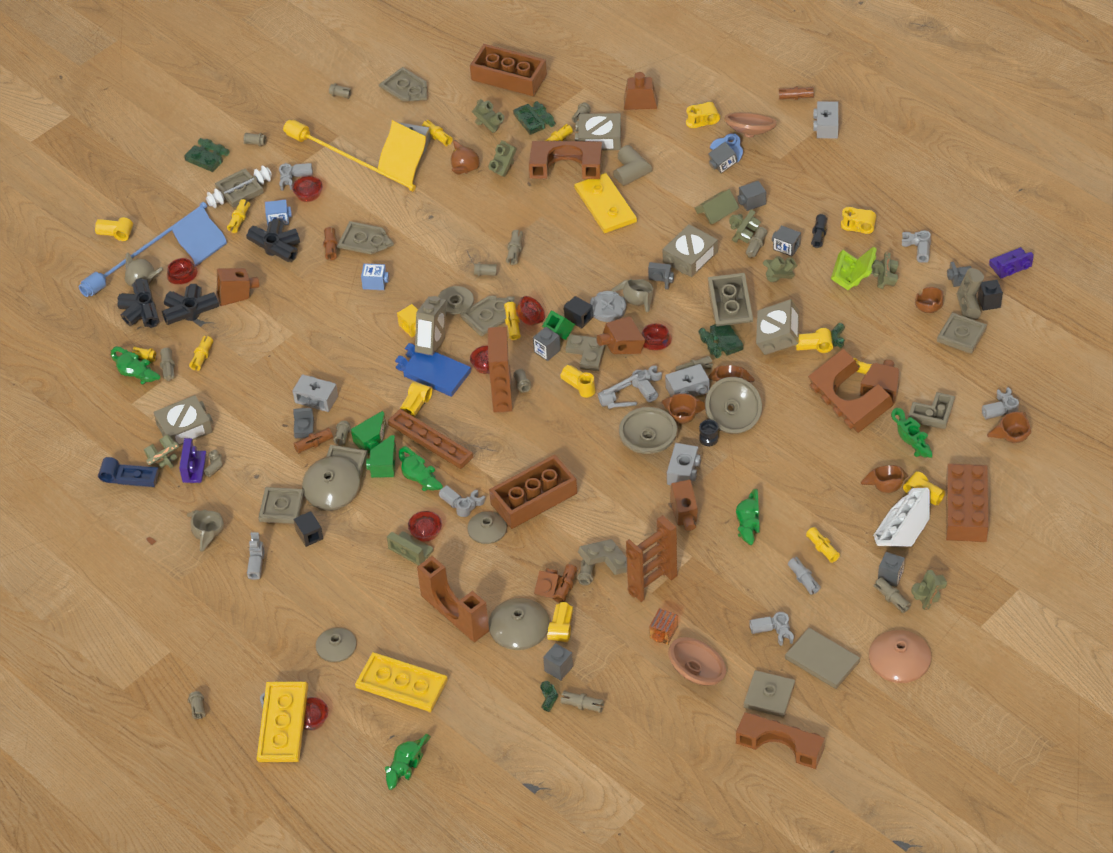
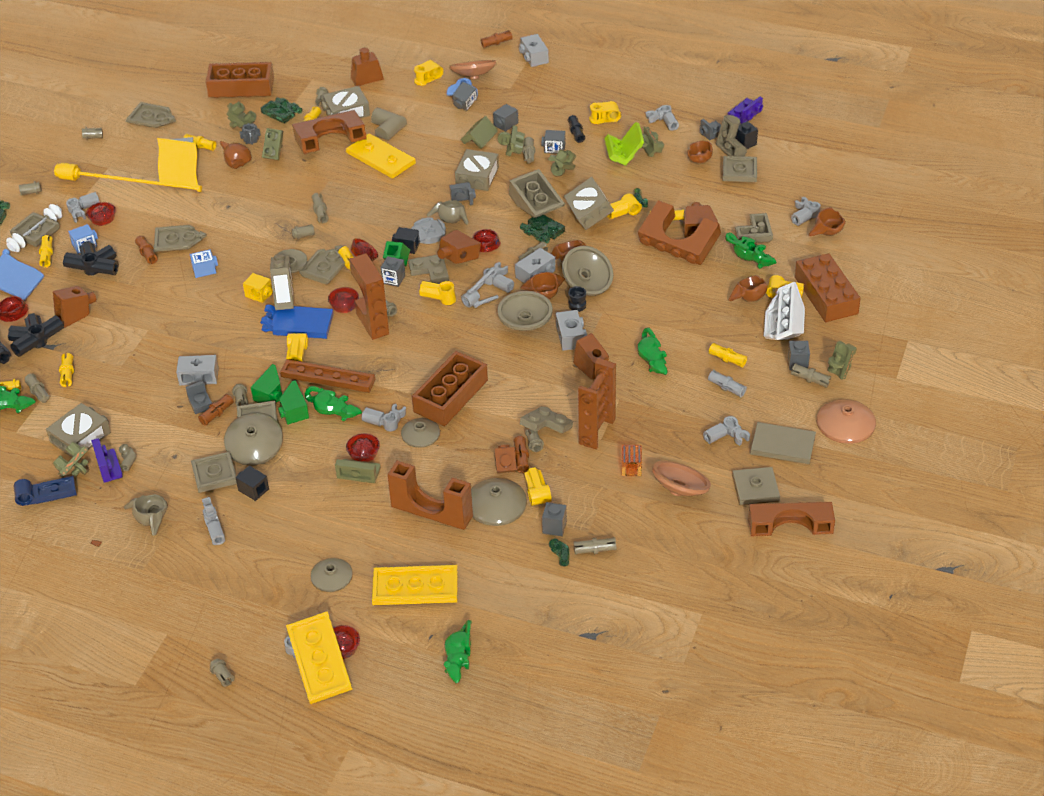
camera: 25 degrees left, 5 degrees down
(488, 138) = (250, 133): none -> dark grey gear

